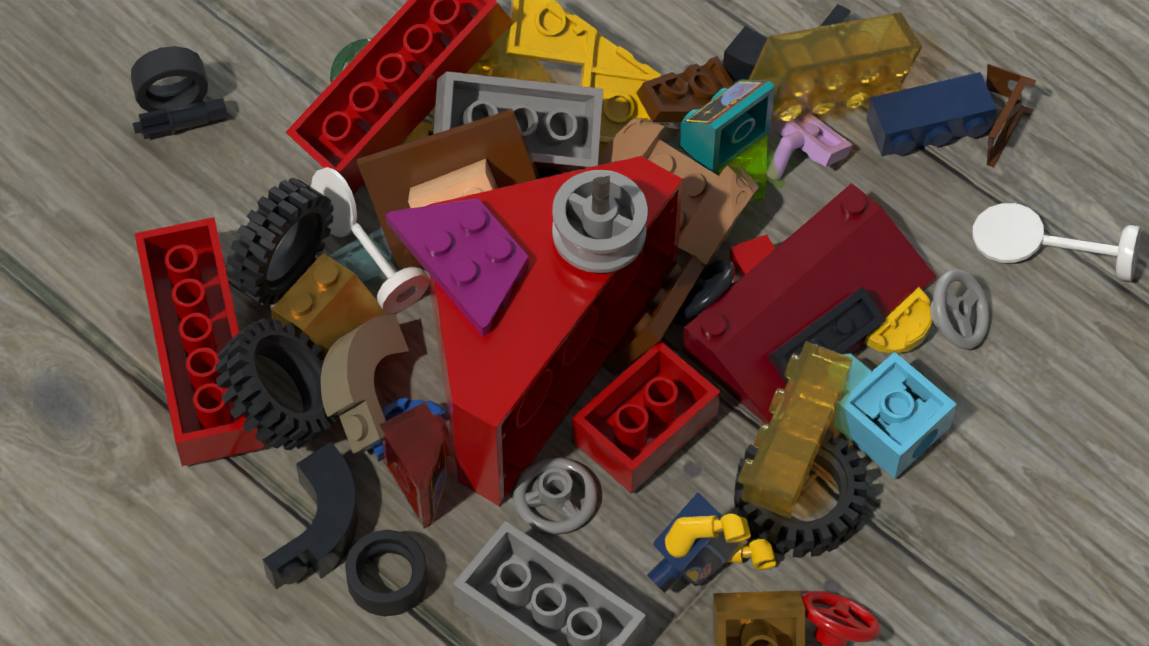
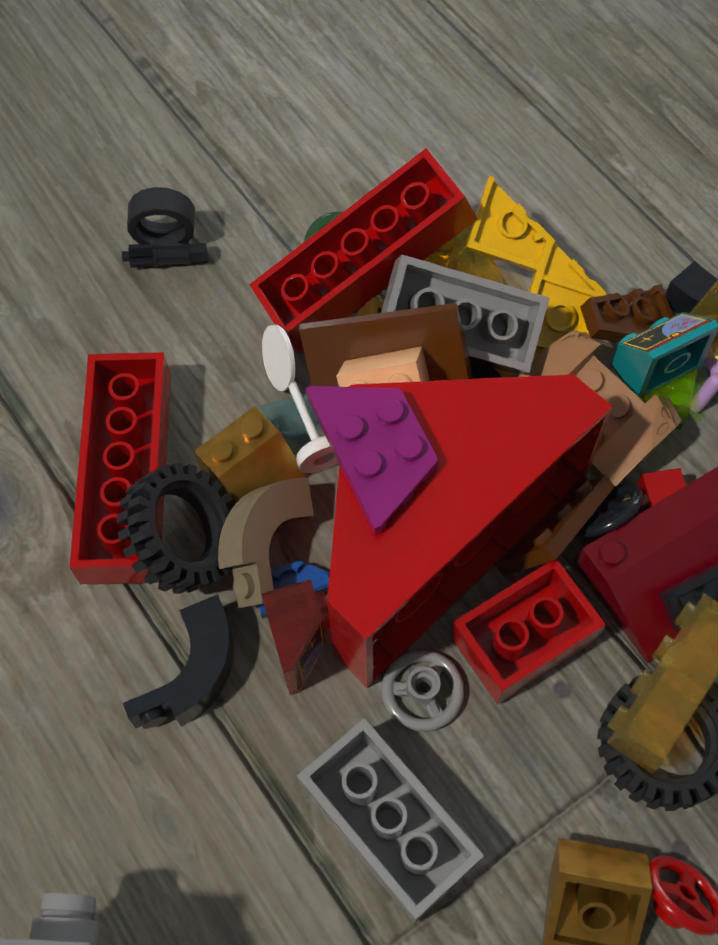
camera: 15 degrees right, 5 degrees up
(290, 211) = (231, 353): black tyre -> none
(381, 543) = (220, 713): black tyre -> none
(599, 221) = (518, 437): light grey wheel -> none
(702, 541) = (556, 782): torso -> none

